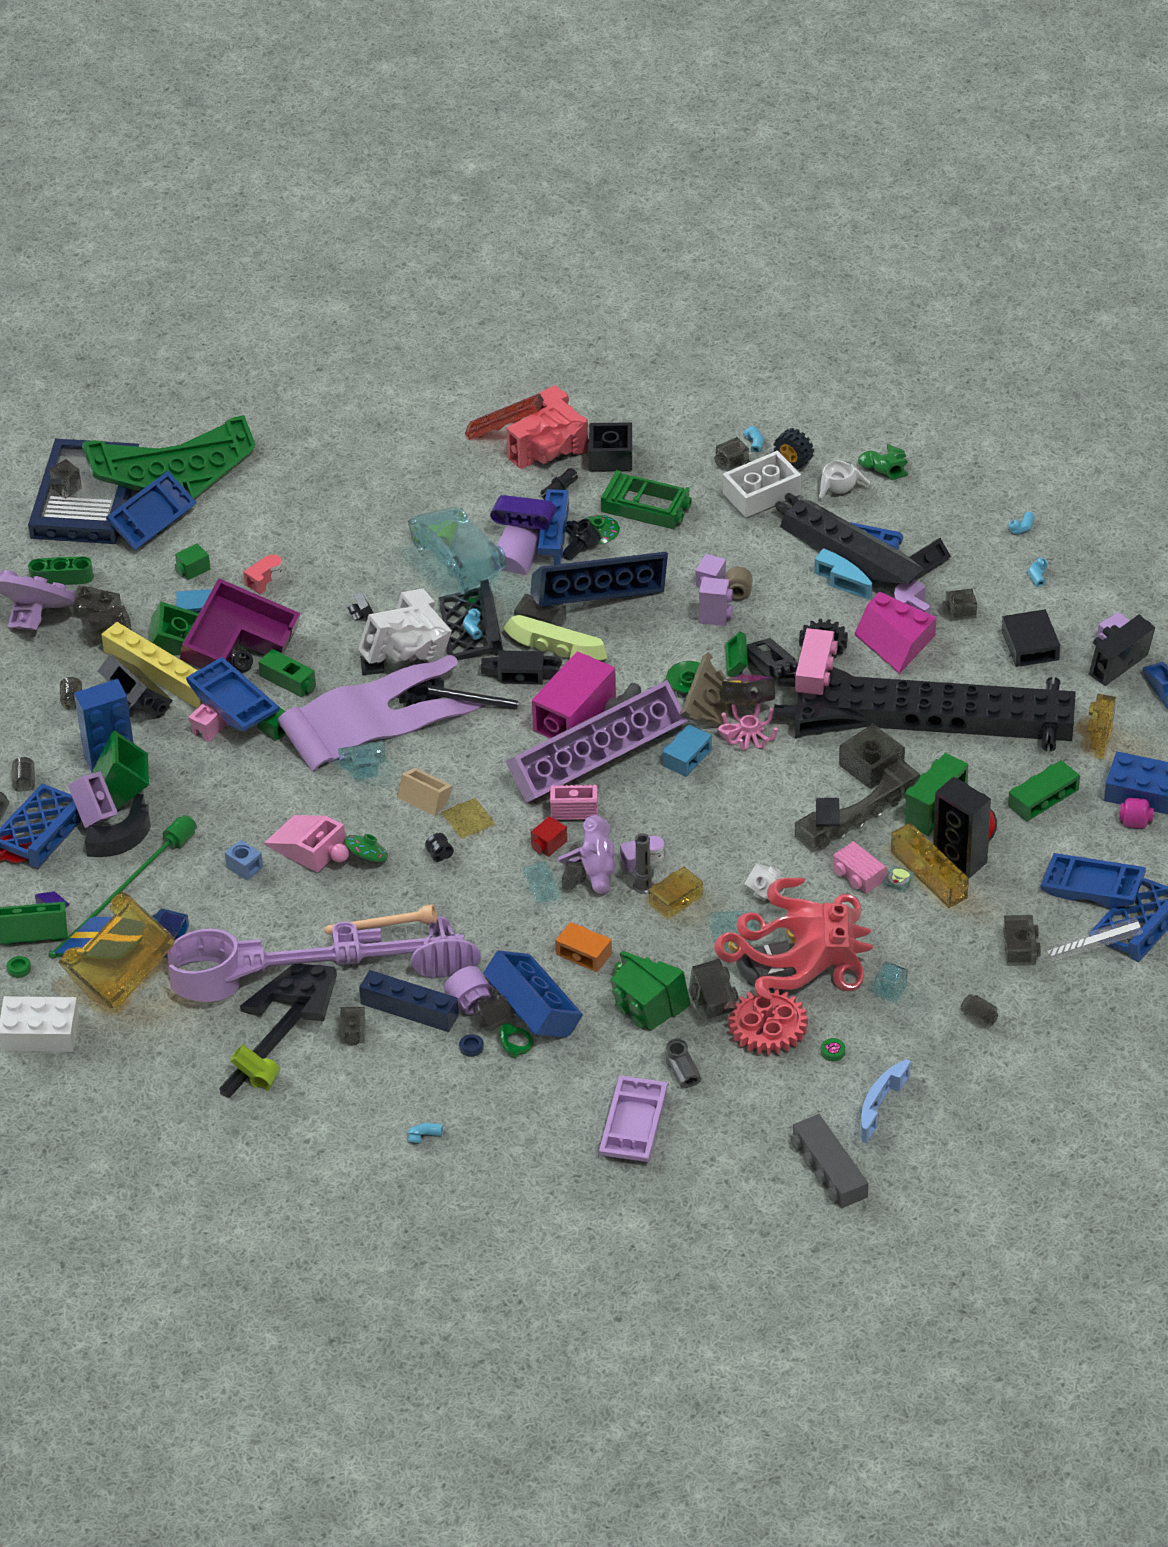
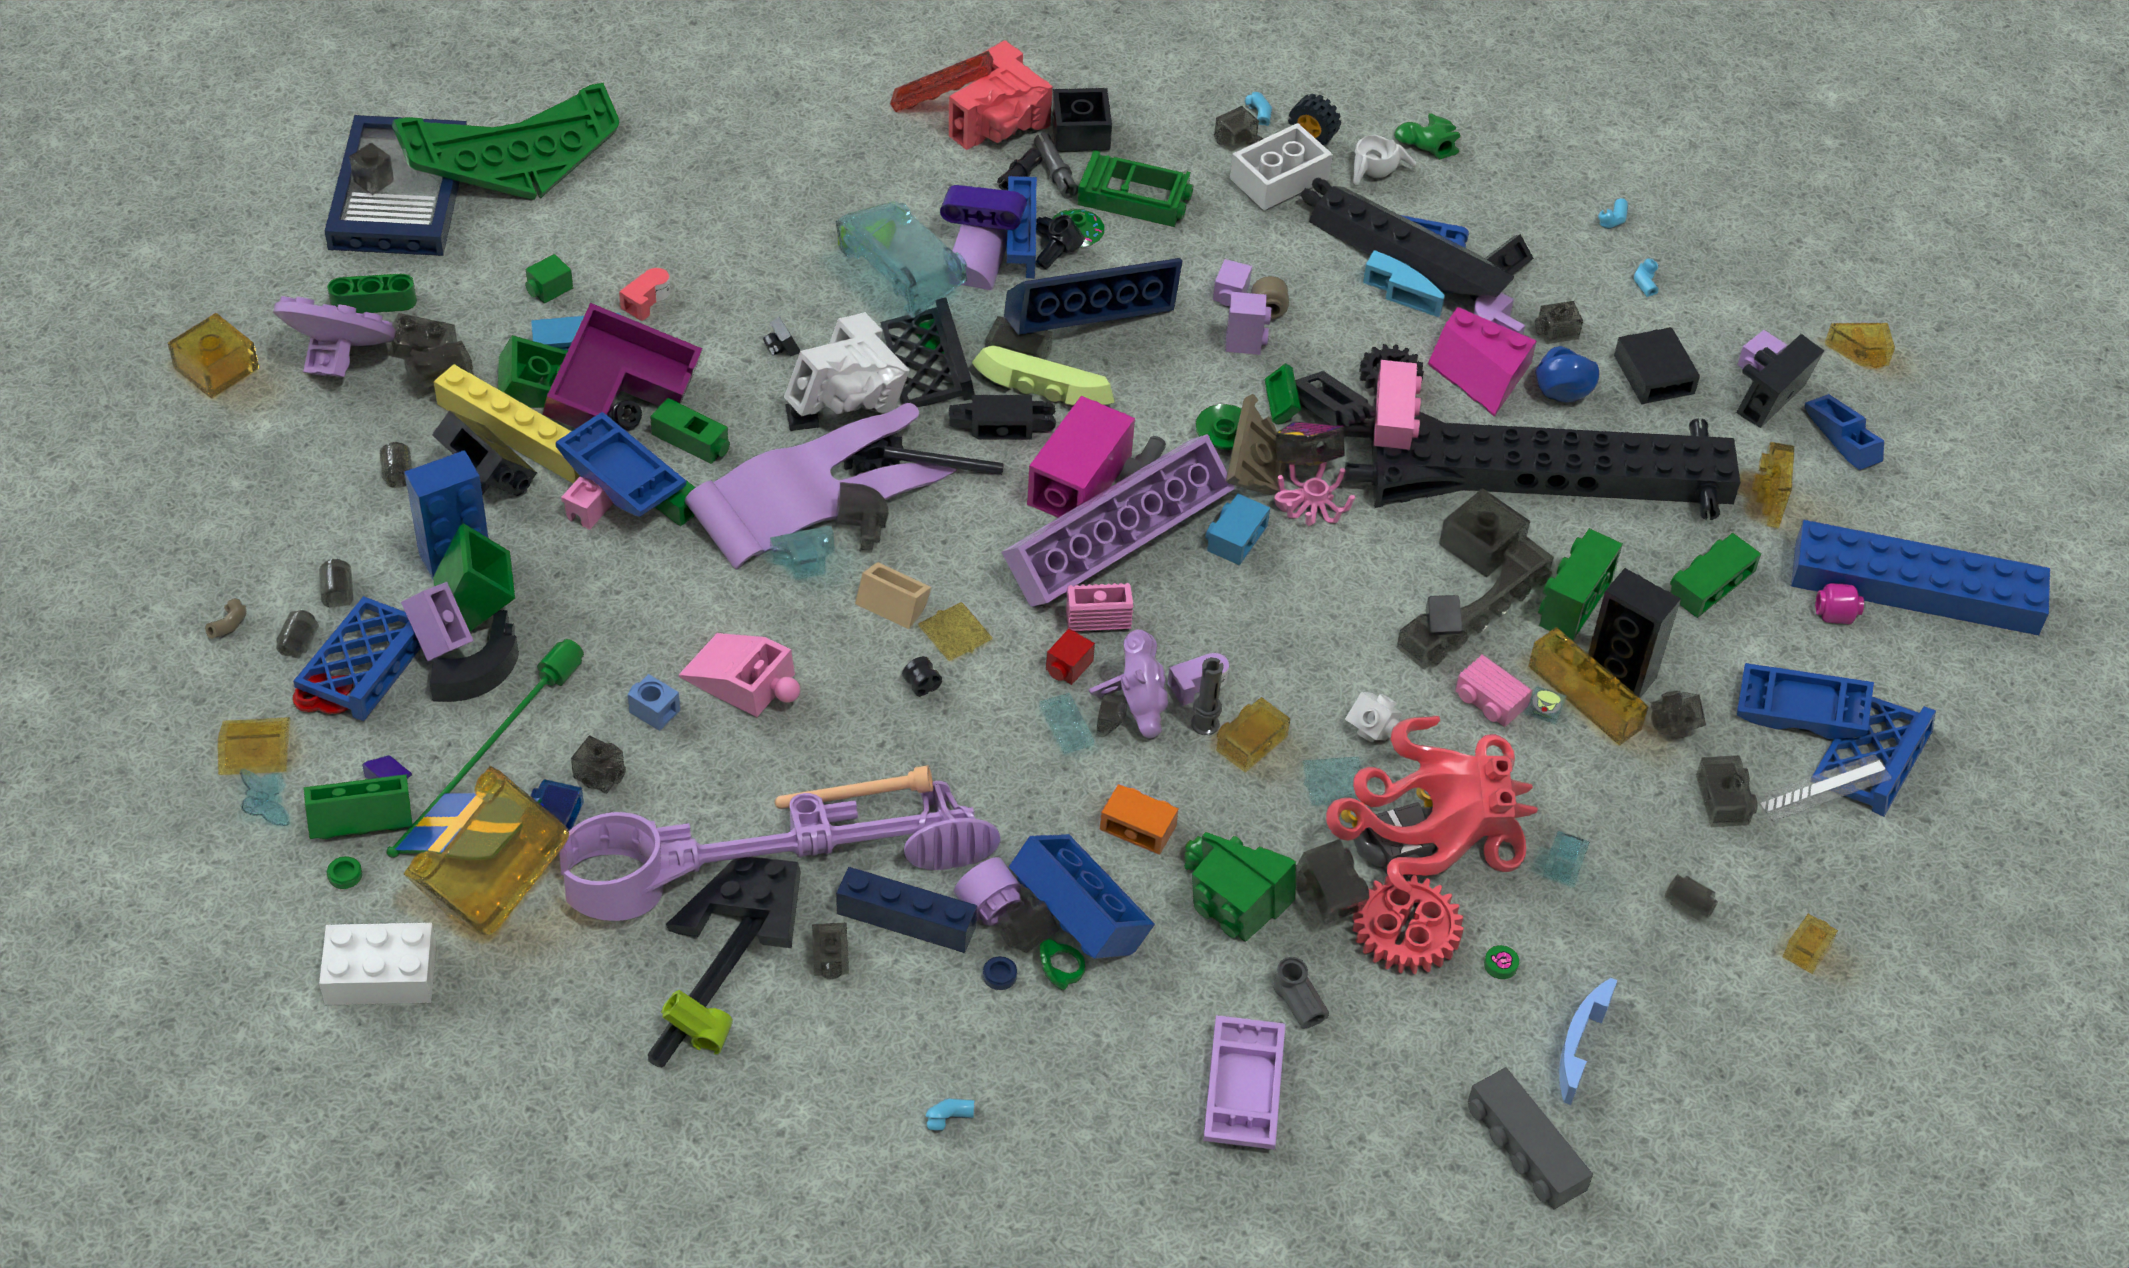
camera: 10 degrees left, 5 degrees up
(151, 510) = (489, 210): blue slope -> none
(200, 900) = (598, 764): none -> clear smoke brick
(366, 847) = (822, 679): green dish -> none
(407, 729) = (865, 508): none -> clear smoke brick
(471, 622) = (929, 358): medium azure arm -> none
(589, 486) = (1059, 171): none -> dark grey pin
(956, 643) = (1566, 375): none -> blue piece
(993, 886) = (1677, 714): none -> clear smoke brick
(1060, 1043) = (1810, 943): none -> clear yellow brick

